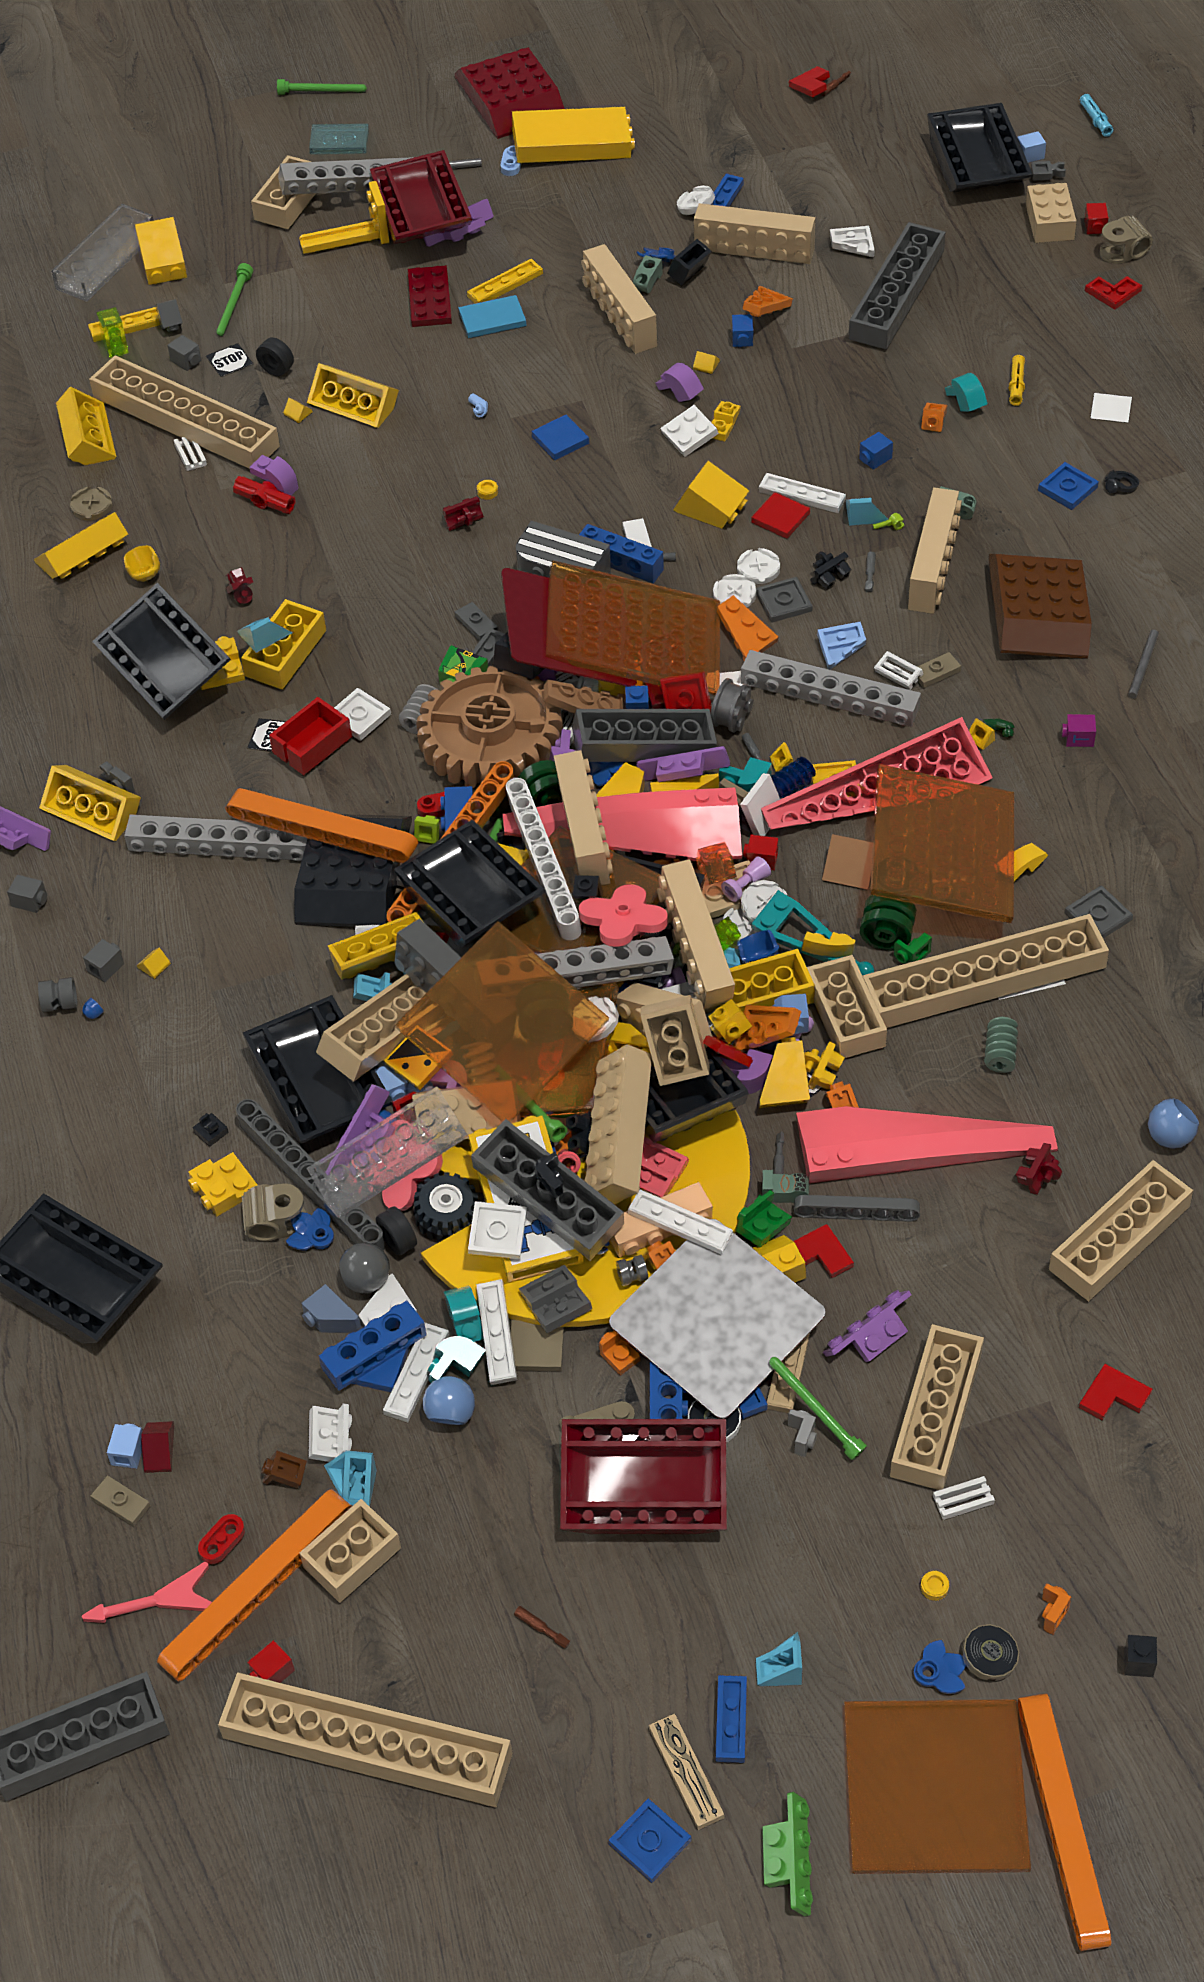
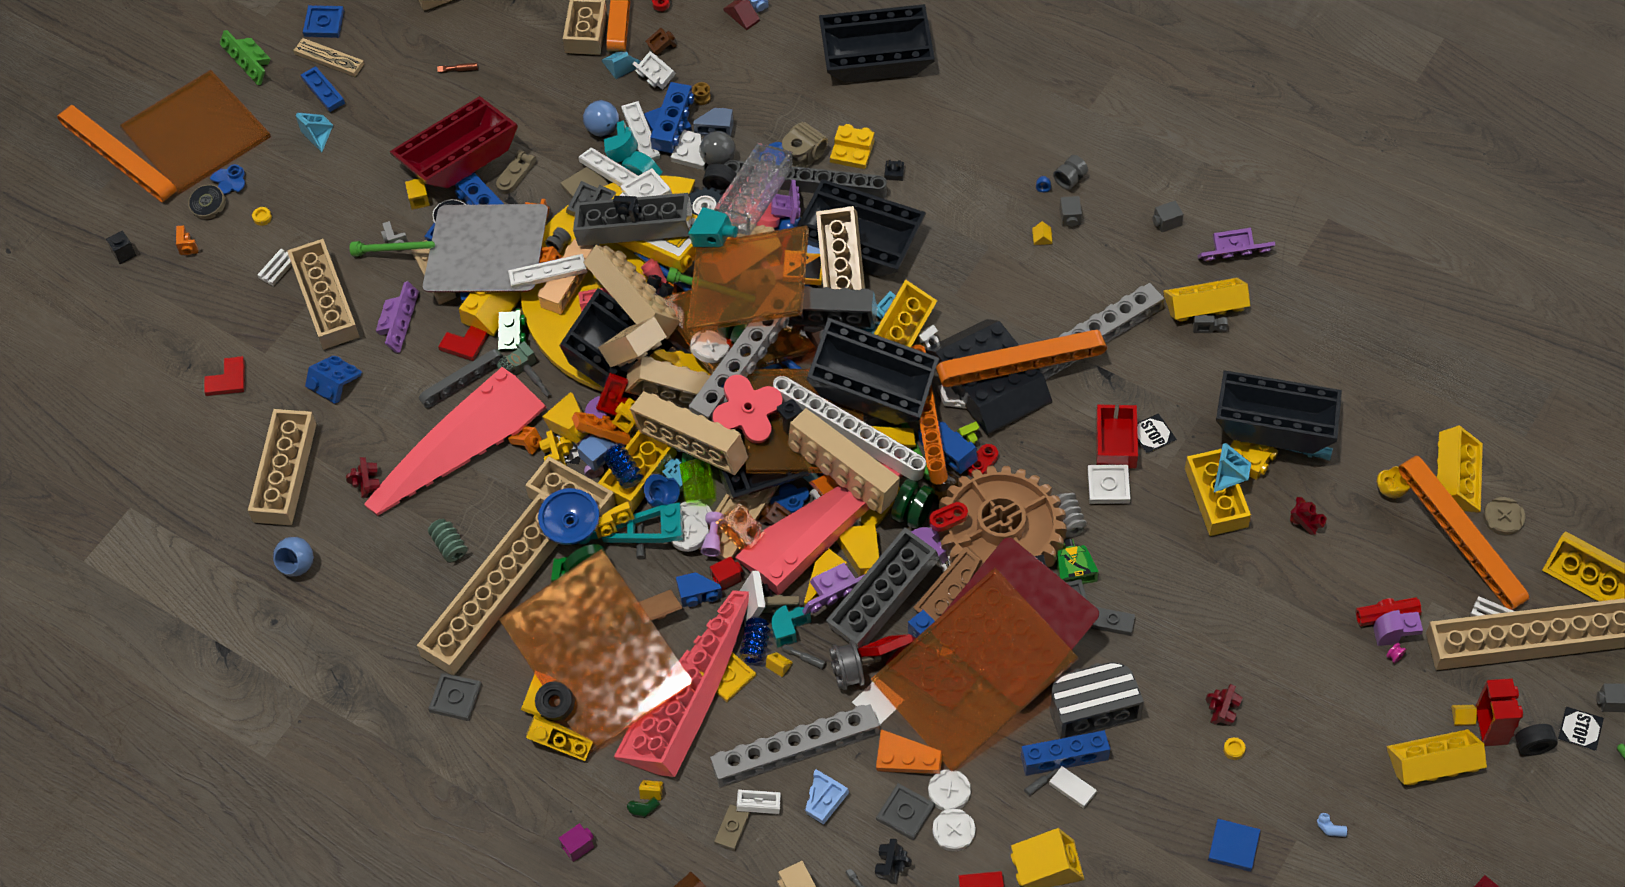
camera: 140 degrees right, 5 degrees up
(143, 496) = (1463, 533): none -> orange beam
(283, 373) = (1498, 712): none -> red piece
(297, 466) = (1396, 653): none -> dark pink bush
(302, 1362) = (701, 93): none -> pearl gold wheel
(482, 1108) = (711, 229): none -> teal torso
(533, 736) = (947, 516): none -> red plate
(737, 1468) = (417, 193): none -> yellow brick
(780, 970) = (622, 466): none -> clear blue piece
(801, 856) = (697, 589): none -> blue slope
(873, 955) = (567, 506): none -> blue dish
(993, 1304) = (329, 377): none -> blue bracket
(1014, 828) = (552, 689): none -> black tyre
(1035, 816) = (558, 737): none -> yellow slope

